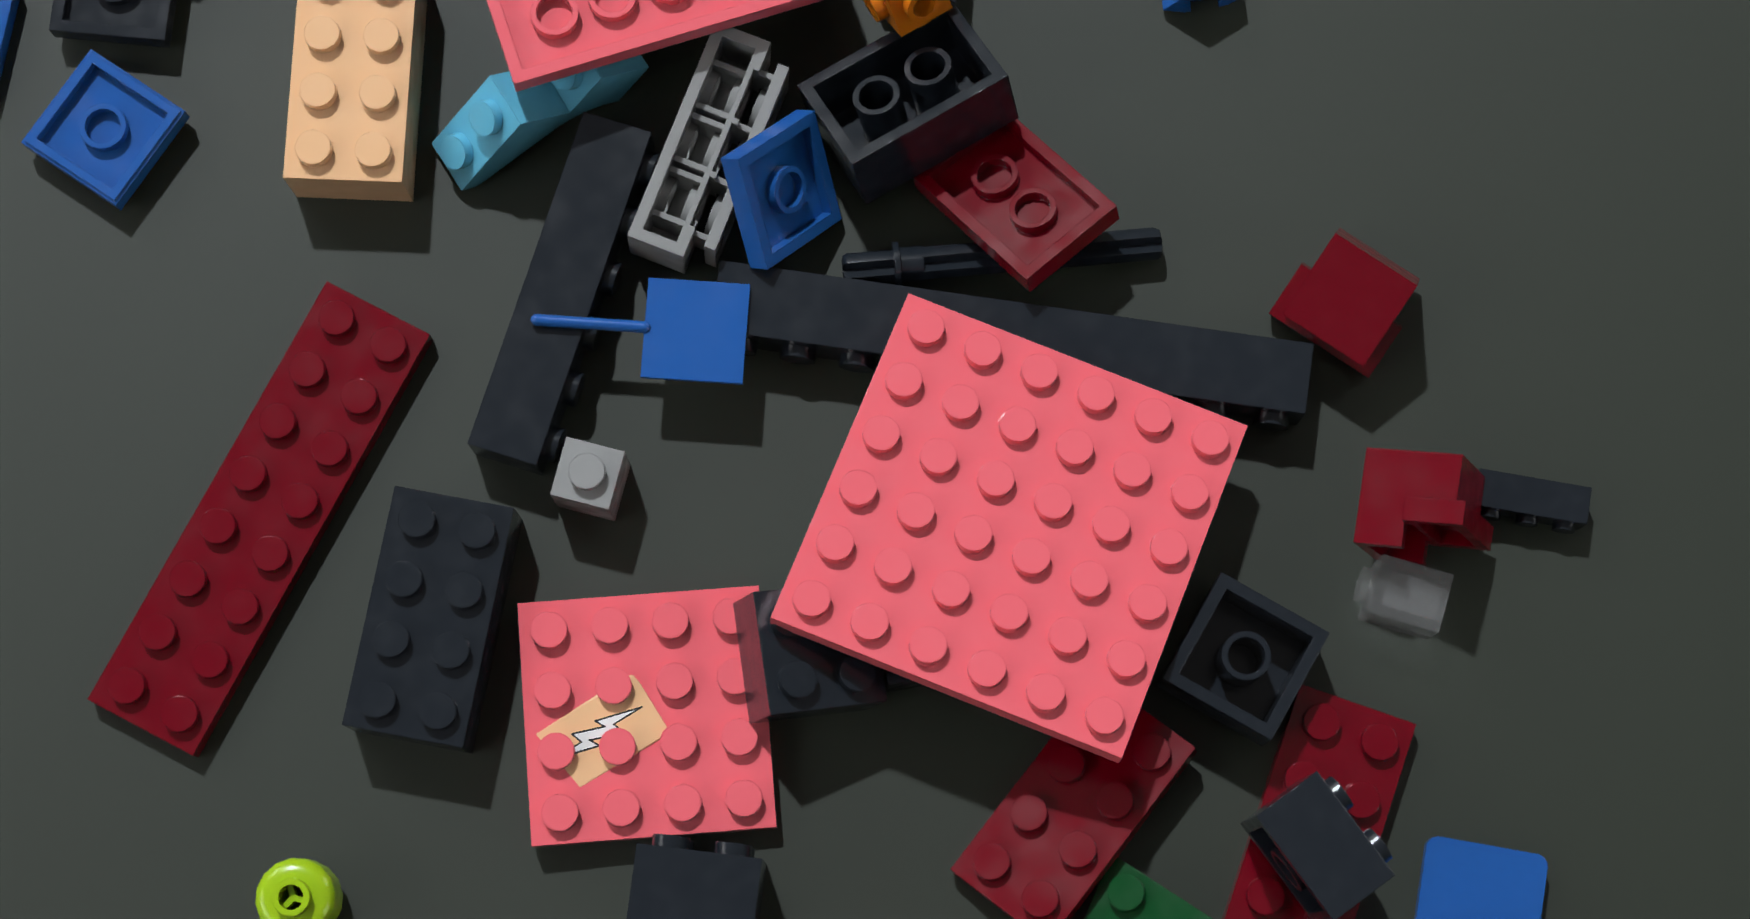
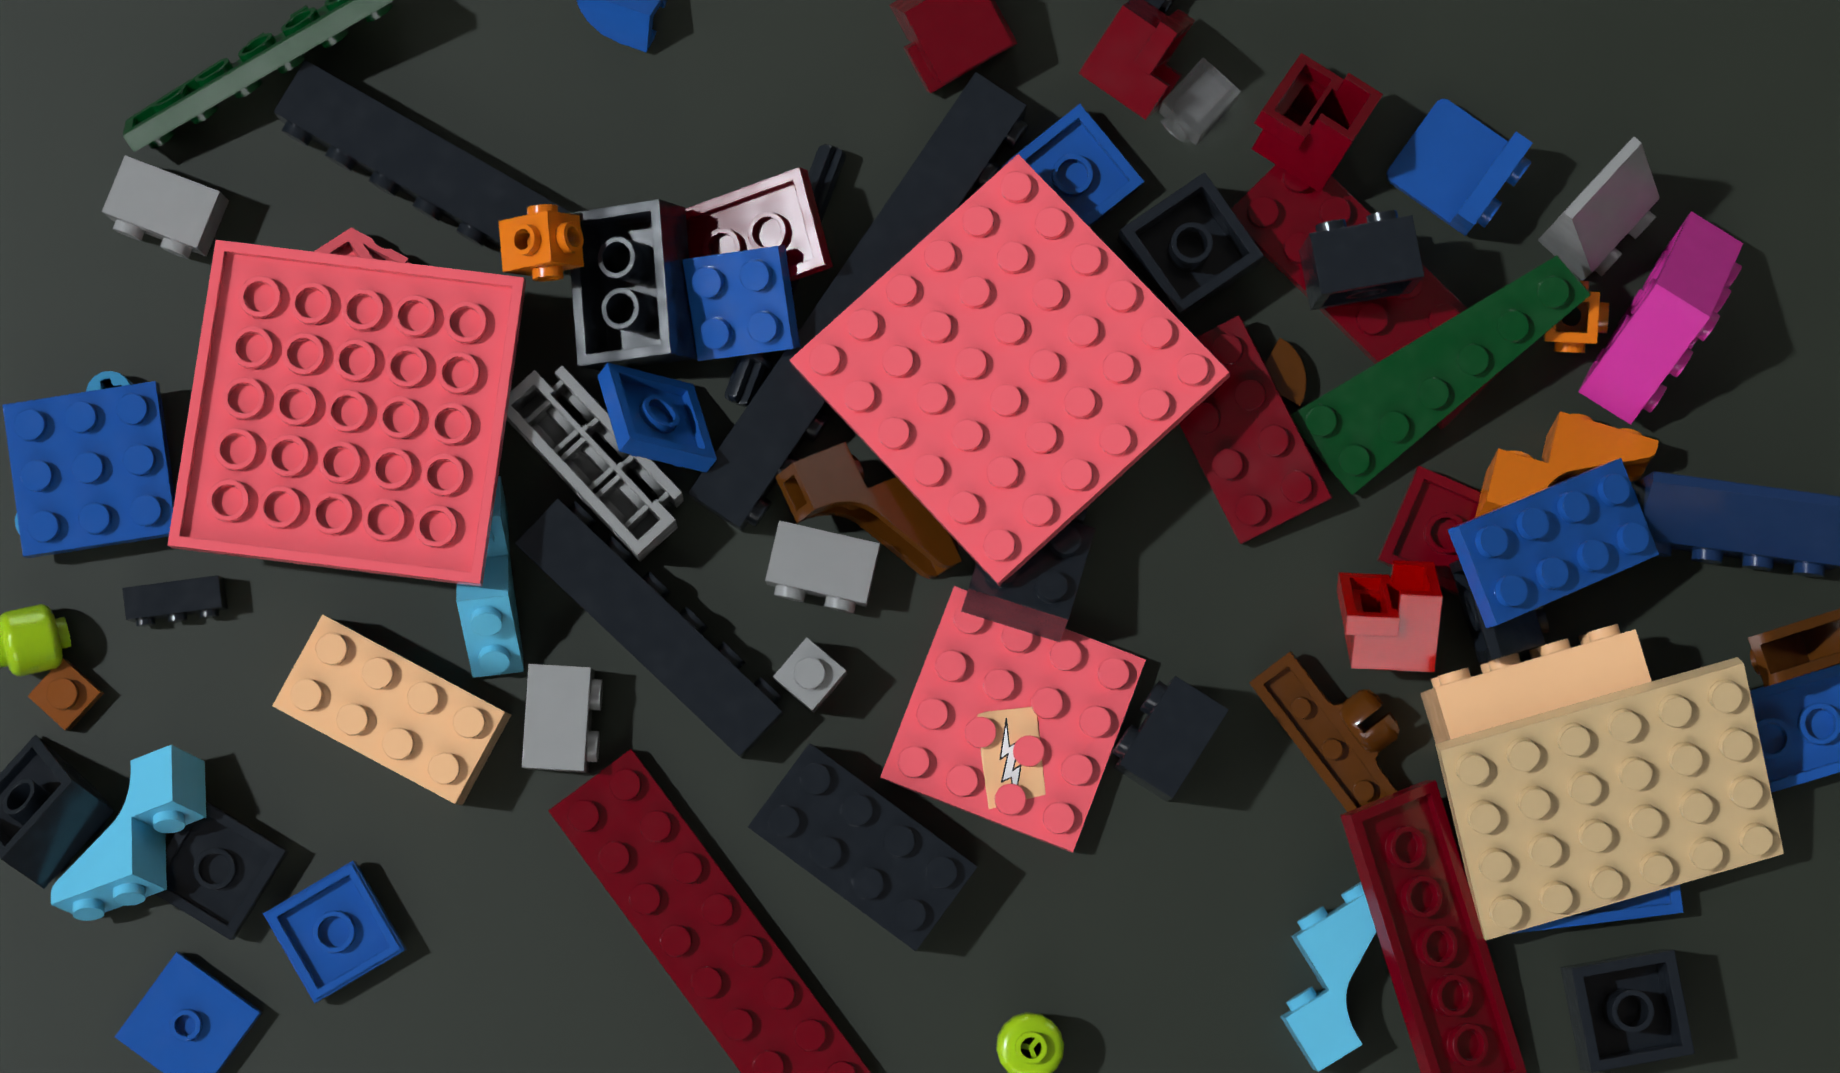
camera: 65 degrees left, 5 degrees up
(426, 247) = (561, 718): none -> light grey brick
(689, 330) = (732, 542): blue piece -> none
(713, 440) = (822, 566): none -> light grey brick
(799, 402) = (835, 486): none -> reddish brown arch
(945, 218) = (741, 303): none -> blue plate
(1161, 832) = (1287, 372): none -> reddish brown tile
(1268, 506) = (1082, 166): none -> blue plate
(1446, 726) = (1313, 120): none -> dark red plate

